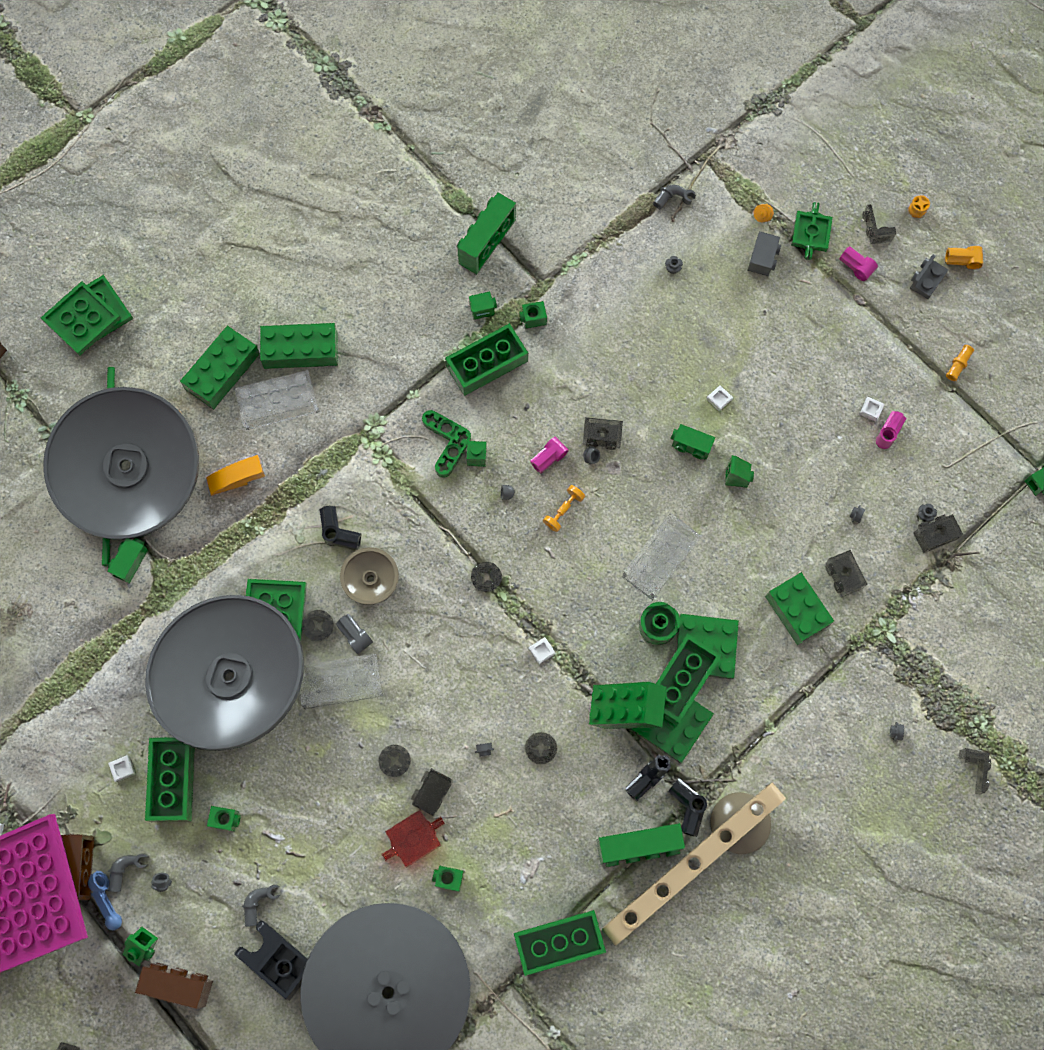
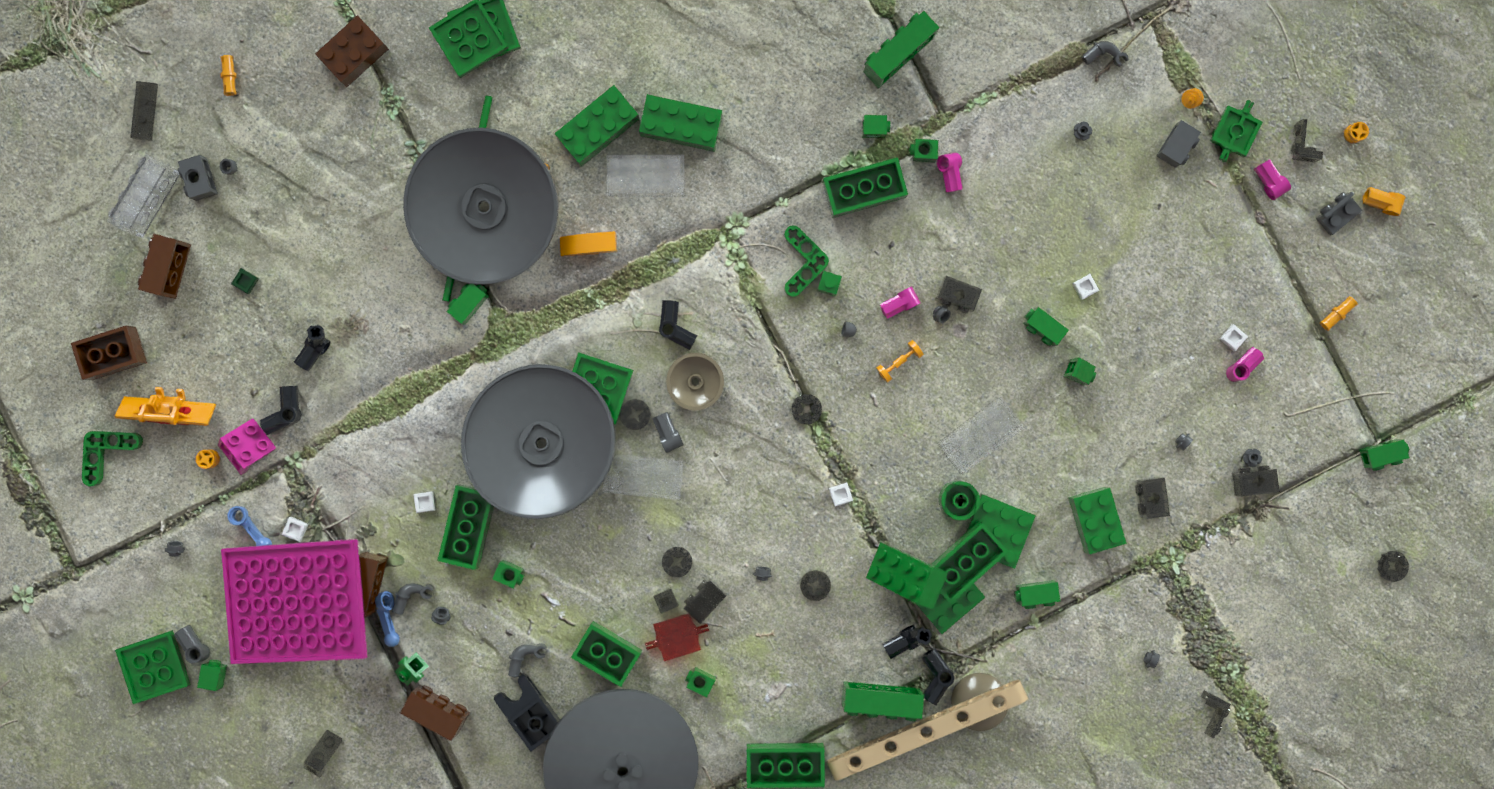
camera: 15 degrees right, 15 degrees up
(343, 873) = (606, 653): none -> green brick
(392, 804) = (666, 600): none -> clear smoke tile
(562, 323) = (950, 165): none -> dark pink piece
(764, 695) = (1037, 593): none -> green brick

